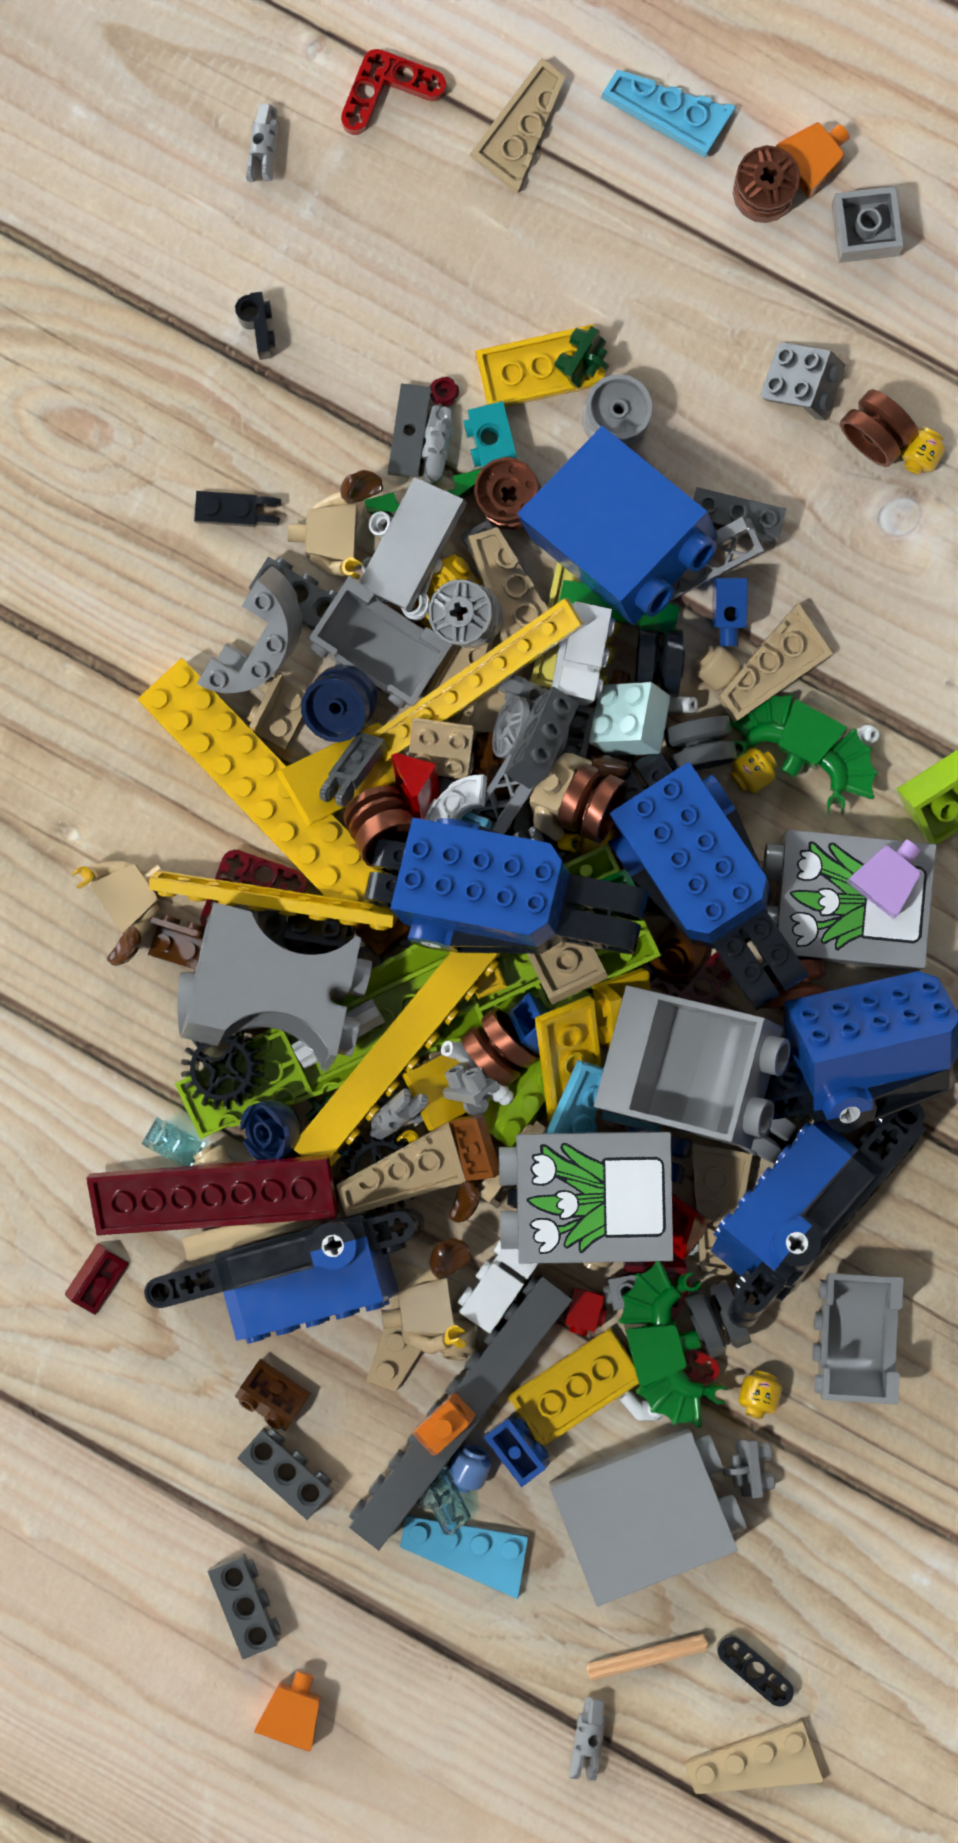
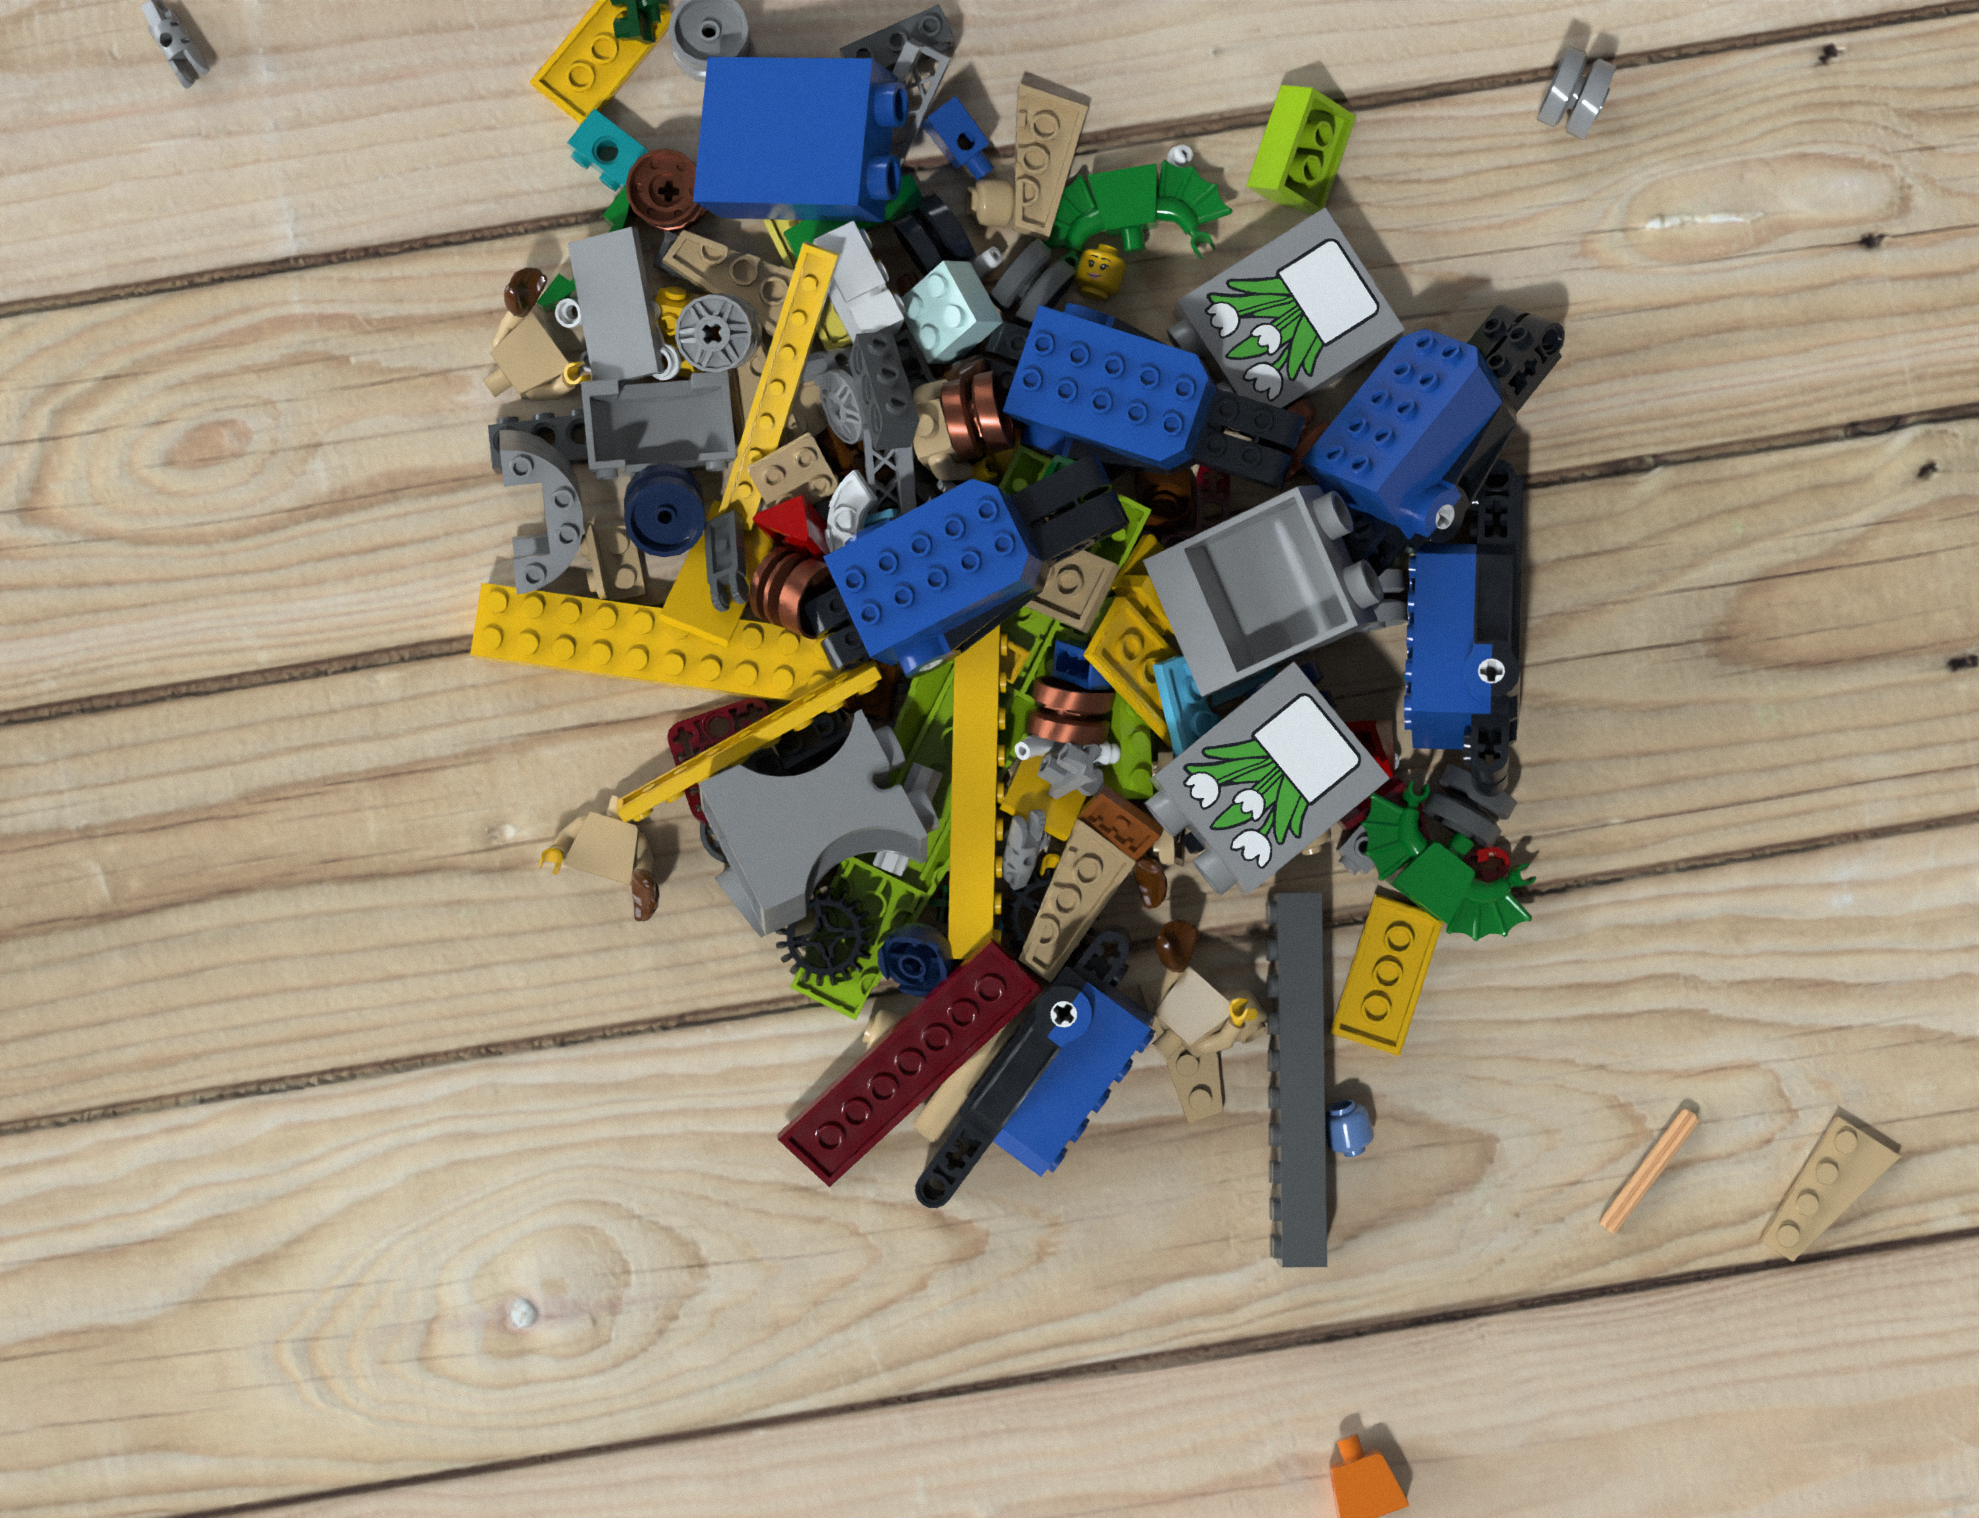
camera: 45 degrees left, 0 degrees up
(96, 1279) = (860, 1228): dark red slope -> none
(172, 1142) = (832, 1043): clear light blue slope -> none
(175, 942) = (689, 853): reddish brown bracket -> none
(234, 509) = (419, 407): black hinge -> none
(239, 1621) = (1249, 1438): dark grey brick -> none
(264, 339) = (320, 223): black plate -> none
(272, 1395) = (1112, 1206): reddish brown bracket -> none
(288, 1489) = (1195, 1280): dark grey brick -> none
(411, 413) = (518, 187): dark grey tile -> none
(436, 444) = (562, 197): light grey hinge -> none
(440, 384) = (526, 134): dark red plate -> none
(444, 1424) = (1296, 1101): orange torso -> none
(446, 1502) = (1352, 1175): clear light blue slope -> none
(475, 1552) = (1412, 1202): medium azure wing -> none
(496, 1288) = (1241, 938): white piece -> none
(517, 1449) = (1379, 1074): blue brick -> none
(585, 1311) = (1341, 897): red brick -> none
(588, 1739) = (1655, 1289): light grey hinge -> none
(638, 1408) = (1462, 948): white arm -> none
(647, 1514) = (1546, 1037): light grey brick -> none
(719, 1184) = (1376, 688): tan wing -> none
(746, 1468) = (1604, 923): light grey hips -> none
(760, 1394) = (1562, 846): yellow head -> none
(778, 1679) = (1784, 1115): black beam -> none
(858, 1338) = (1611, 721): light grey cylinder -> none
(888, 877) = (1306, 271): lavender torso -> none

